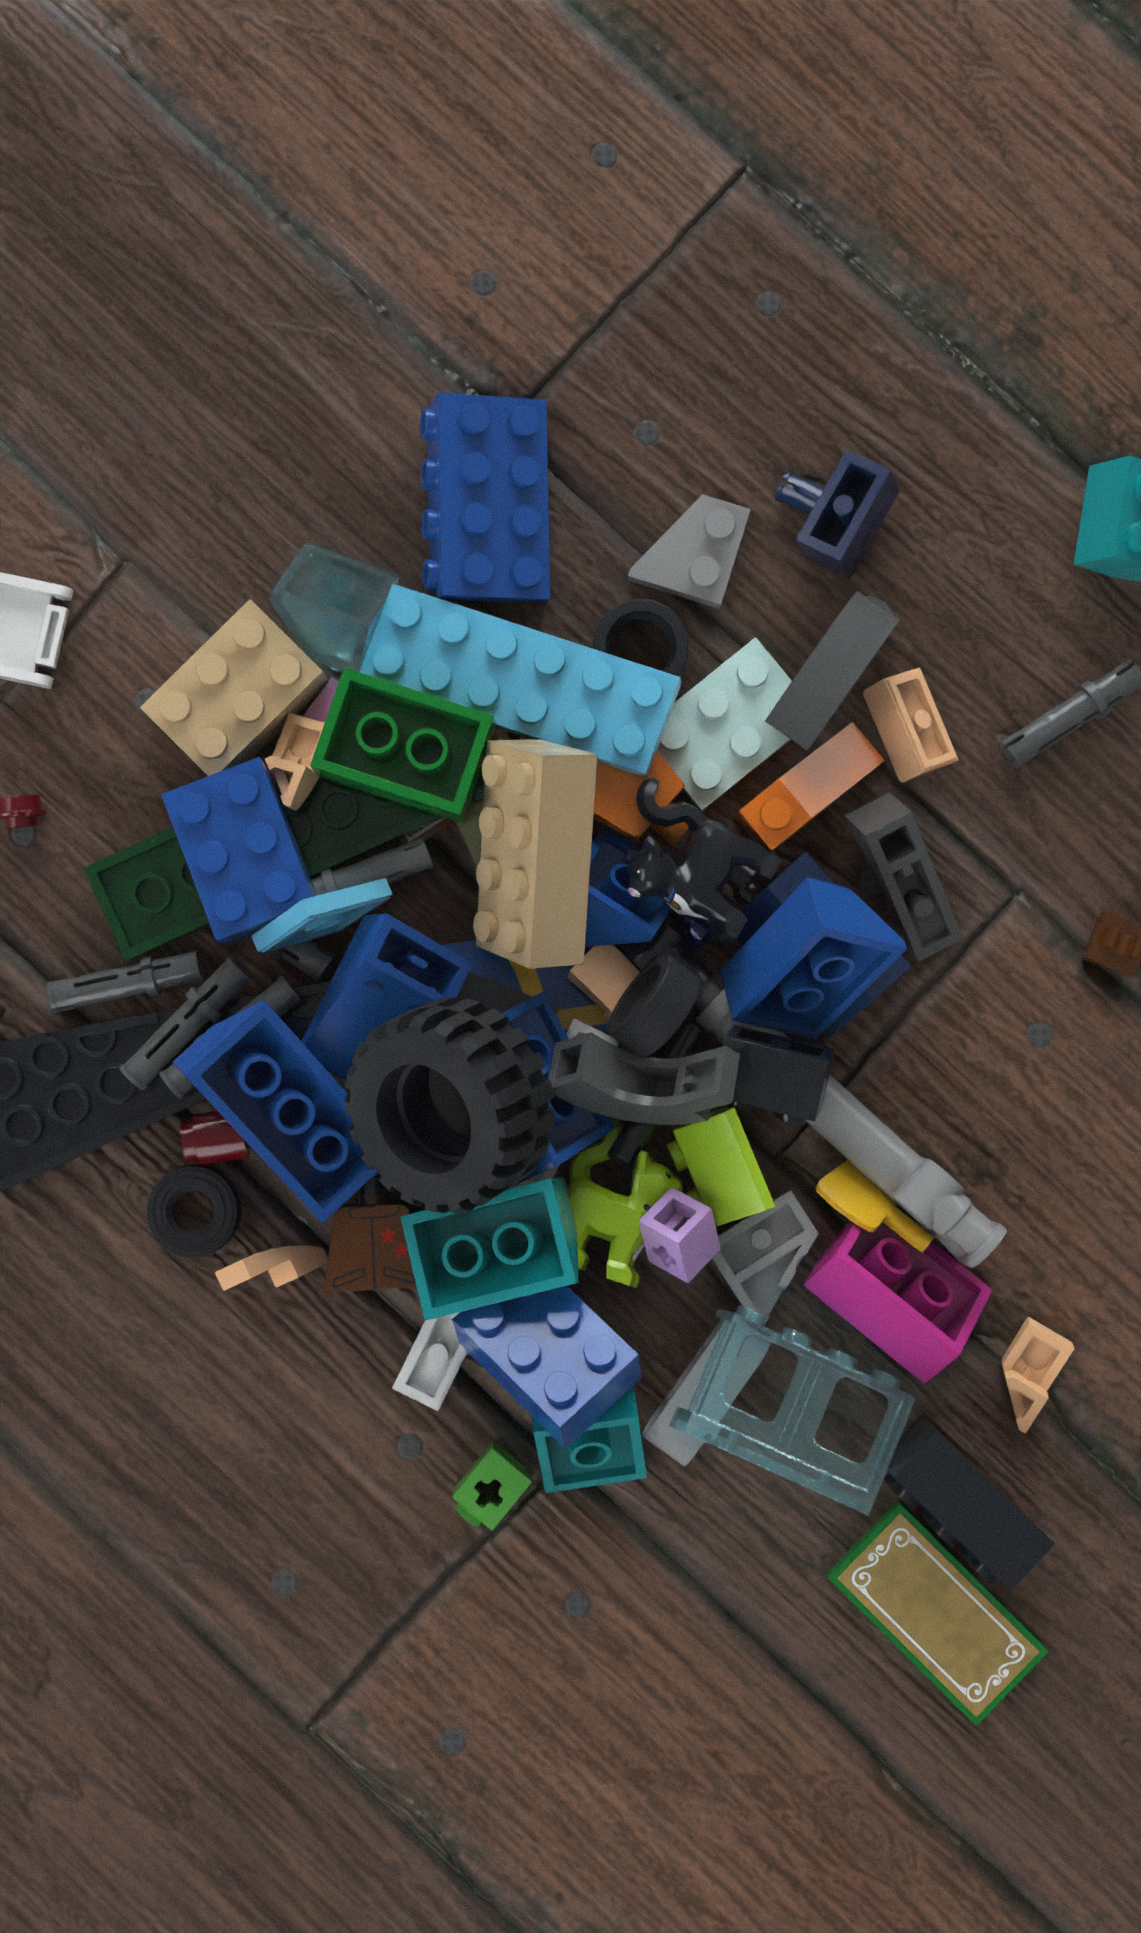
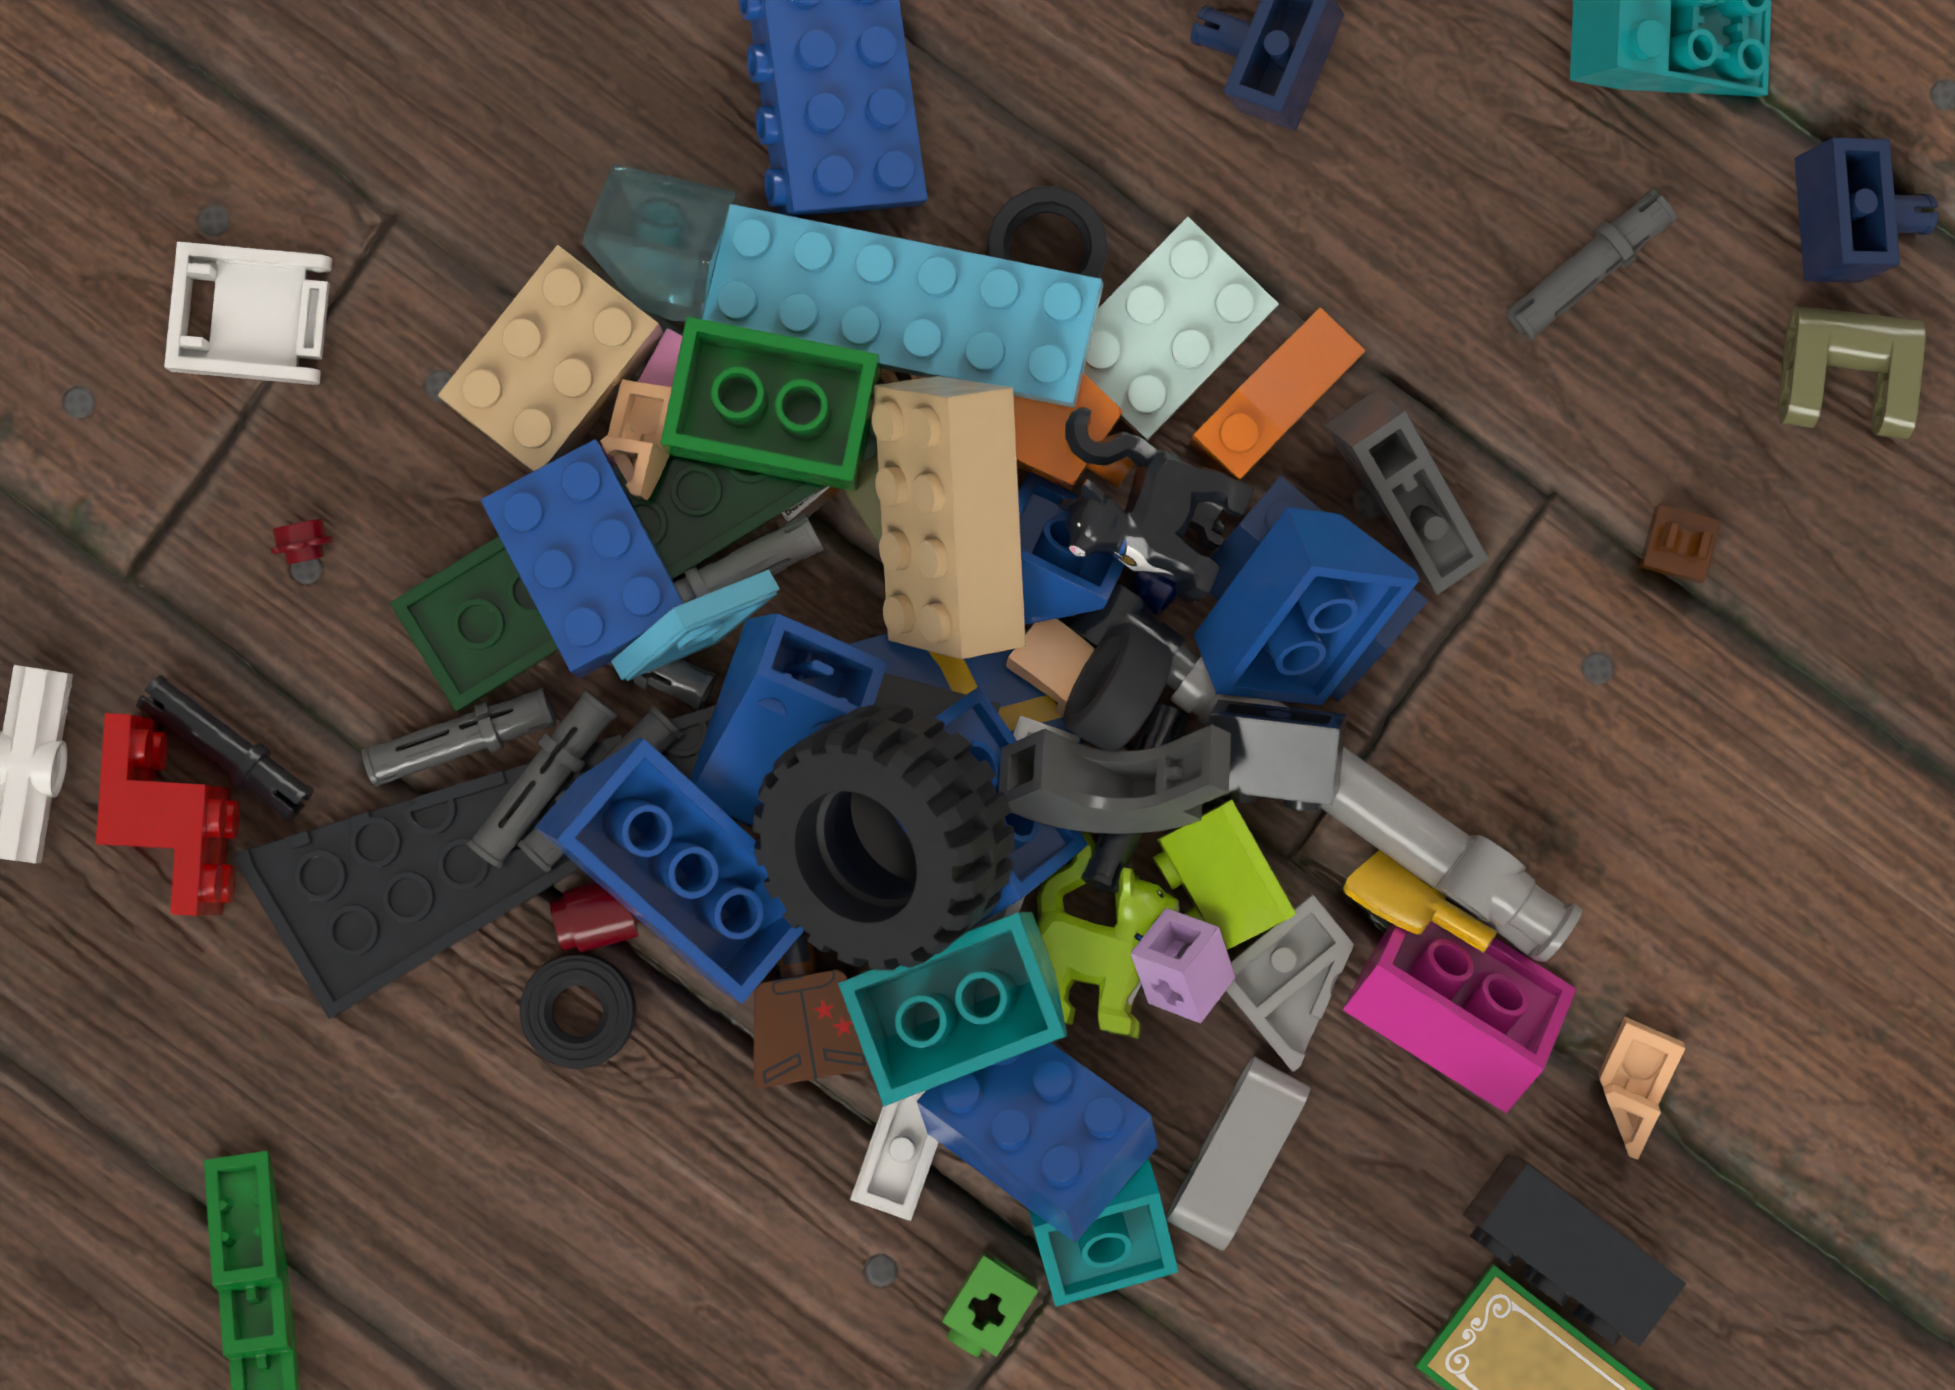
camera: 15 degrees left, 0 degrees up
(282, 1264) = (694, 1062): light nougat slope -> none
(695, 552) = (1101, 120): light grey wing -> none
(788, 1441) = (1347, 1202): clear light blue window -> none
(832, 669) = (1288, 246): dark grey arch -> none
(910, 725) = (1391, 302): light nougat slope -> none

